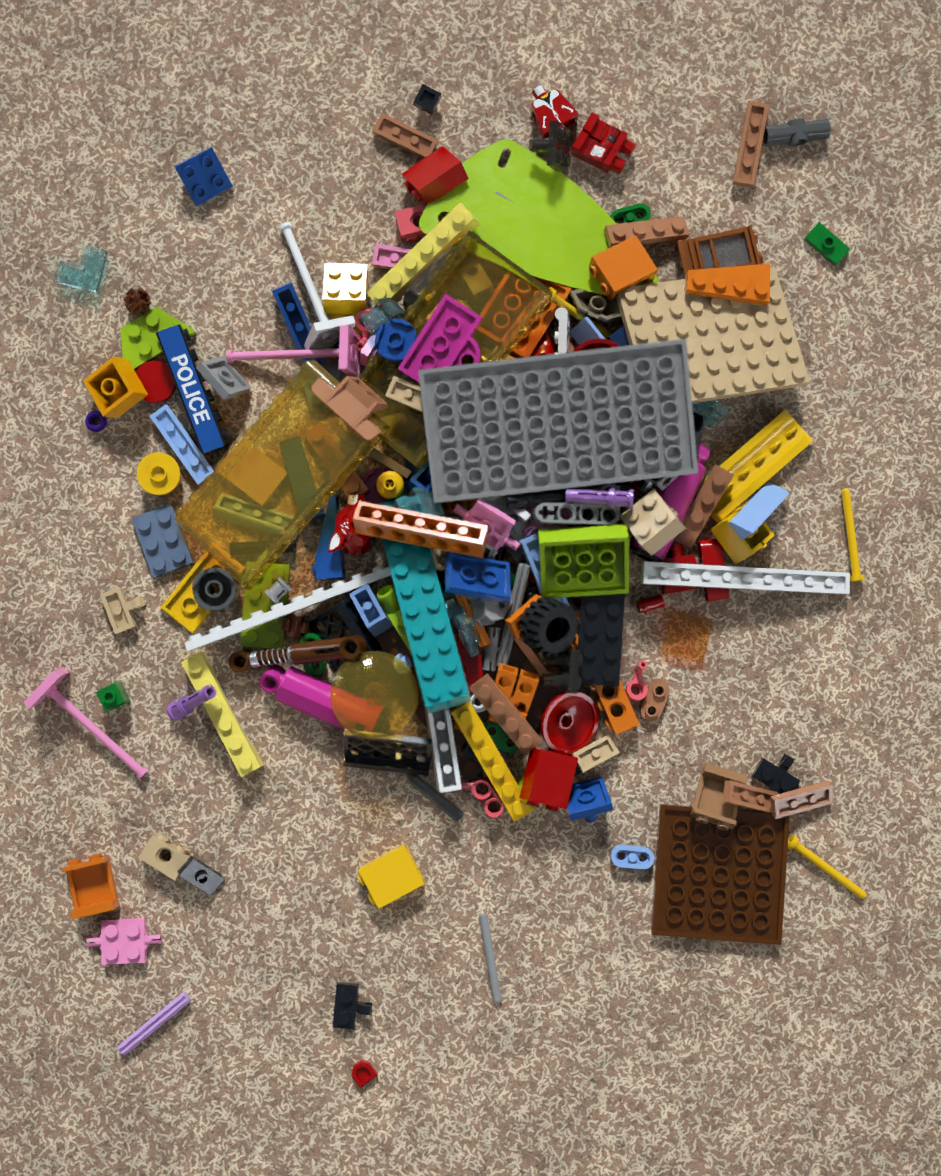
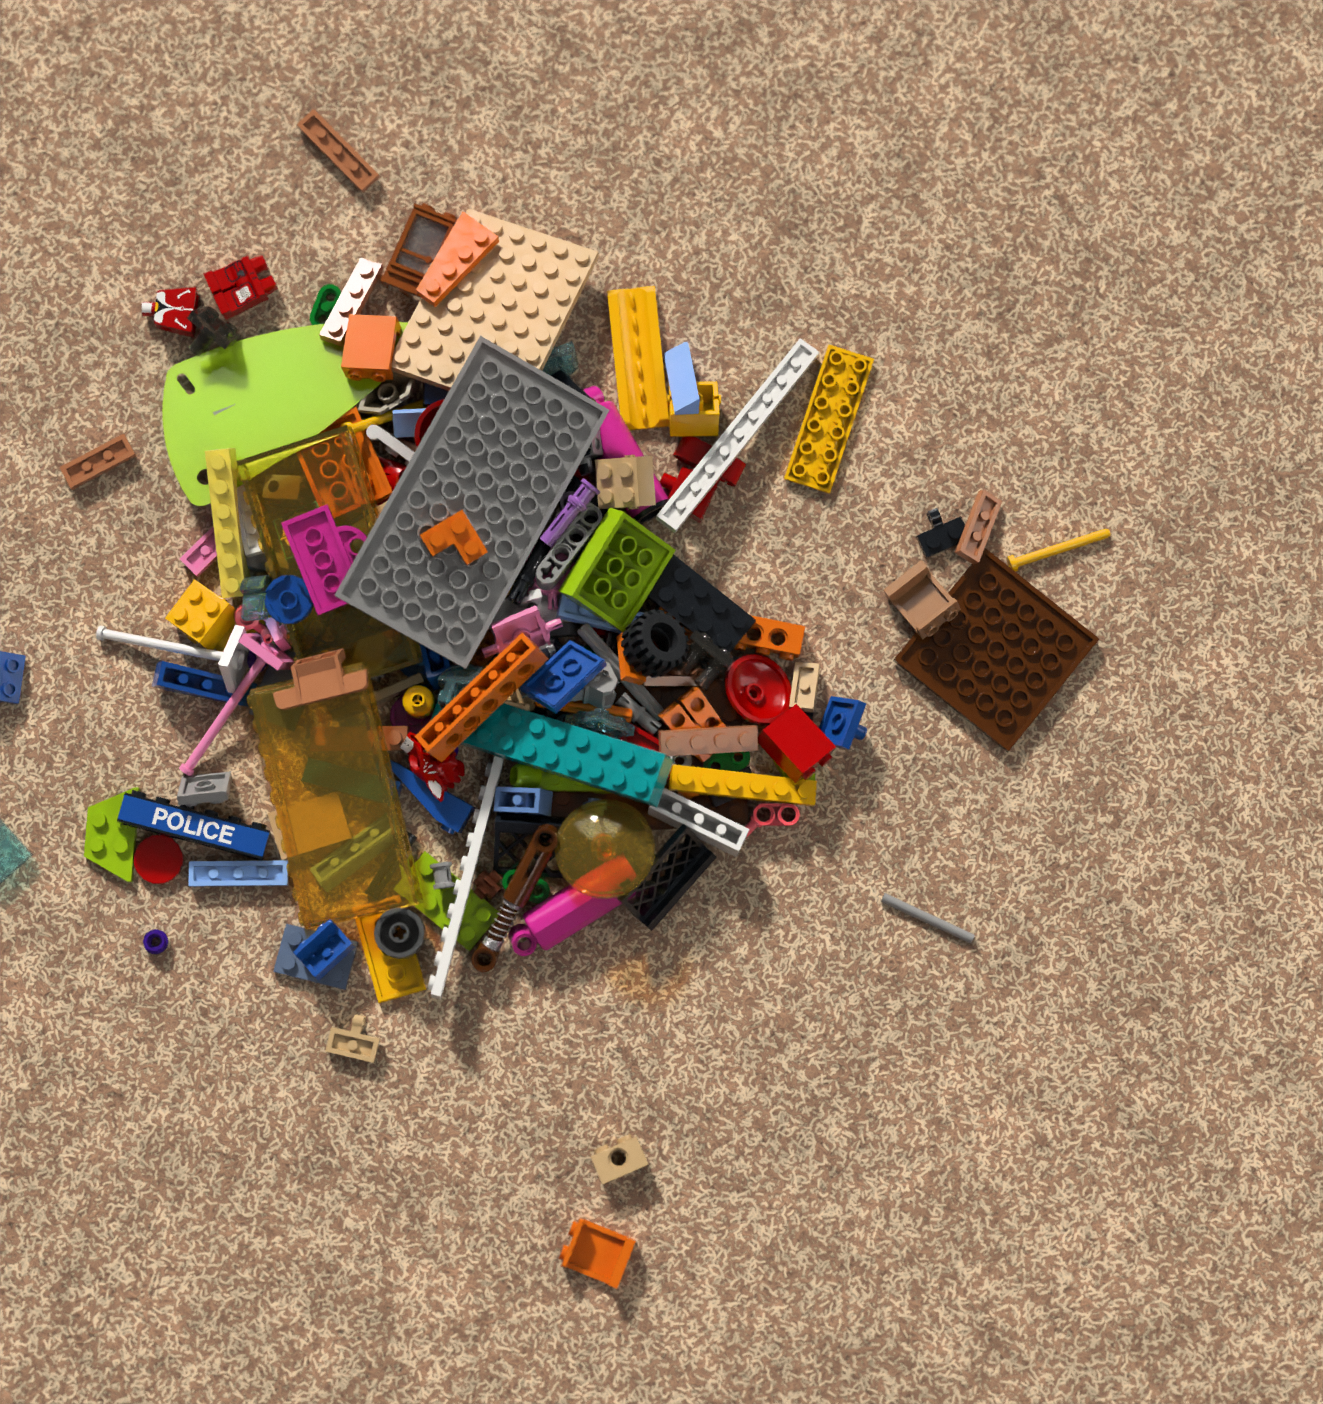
camera: 55 degrees left, 5 degrees down
(48, 688) = (383, 1160): bright pink tile -> none
(113, 696) = (431, 1105): green brick -> none
(115, 387) = (139, 897): light orange brick -> none
(124, 941) = (672, 1257): bright pink plate -> none
(137, 301) = (70, 821): copper gear -> none
(154, 1023) = (771, 1283): lavender axle -> none
(159, 474) = (250, 915): yellow piece -> none
(167, 543) = (324, 949): none -> blue bracket
(186, 704) = (489, 1038): medium lavender pin -> none
(200, 875) = (660, 1137): plate -> none
(222, 716) = (521, 1011): light yellow arch -> none
(347, 1005) = (881, 1085): black plate -> none
(363, 1072) = (954, 1113): red tile -> none
(390, 876) = (786, 957): yellow brick -> none
(405, 221) = (181, 518): coral brick -> none
(405, 393) = (346, 624): tan plate -> none
(427, 99) = (78, 416): black tile -> none
(434, 176) = (157, 459): red brick -> none
(436, 797) = (742, 865): dark grey axle -> none
(527, 424) = (457, 532): none -> orange plate
(631, 857) = (924, 720): light blue plate -> none
(637, 683) = (766, 602): coral plate -> none
(650, 603) = (700, 540): red pin -> none
(654, 700) = (793, 598): nougat plate -> none
(686, 637) = (755, 528): clear orange tile -> none
(704, 505) = (643, 426): nougat plate -> none
(747, 796) = (940, 573): nougat plate -> none
(797, 132) = (357, 101): dark grey piece -> none
(804, 634) = (829, 419): none -> yellow plate
(826, 244) = (481, 146): green plate -> none
(851, 536) = (808, 334): yellow bar -> none

